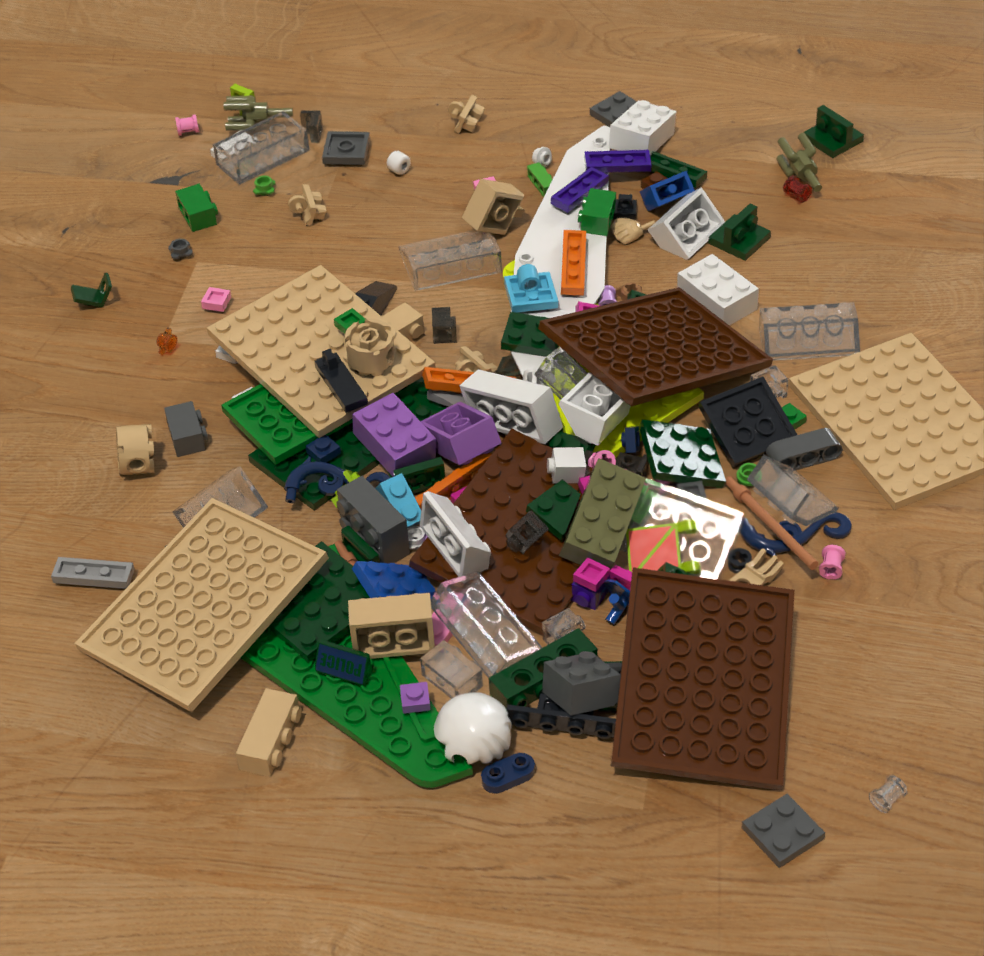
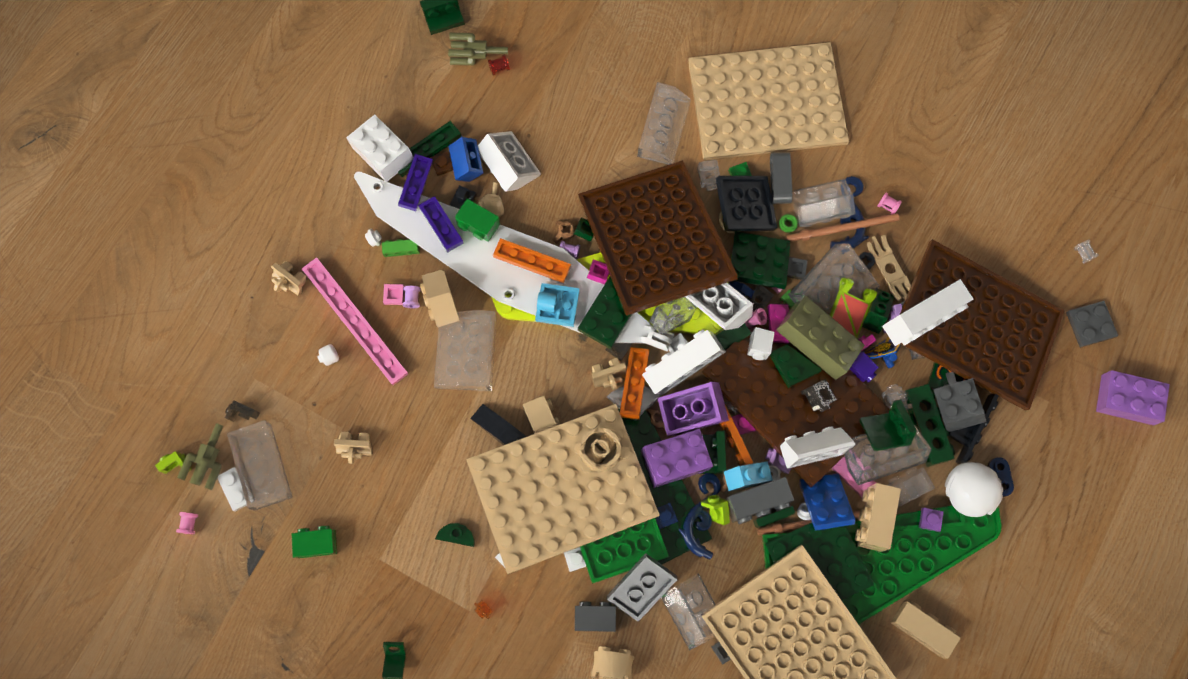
camera: 75 degrees left, 30 degrees up
(180, 249) = (357, 570): dark grey plate -> none
(216, 299) = (444, 555): bright pink plate -> none
(230, 446) = (642, 587): none -> plate
(241, 298) = (456, 534): none -> dark green plate
(264, 185) = (300, 479): bright green plate -> none
(340, 381) = (620, 483): black hinge -> none
(343, 662) = (888, 561): slope -> none
(346, 148) = (285, 392): dark grey plate -> none
(346, 319) = (559, 456): green plate -> none
(442, 171) = (355, 321): none -> bright pink plate
(443, 325) = (550, 382): clear smoke brick -> none
(512, 611) = (889, 429): none -> dark green bracket
(591, 574) = (869, 364): dark pink plate -> none
(611, 108) = (335, 156): dark grey plate -> none
(676, 579) = (928, 314): none -> white brick
(691, 895) = (1132, 397): none -> medium lavender brick
(719, 289) = (595, 167): white brick -> none
(741, 234) = (532, 127): dark green bracket -> none

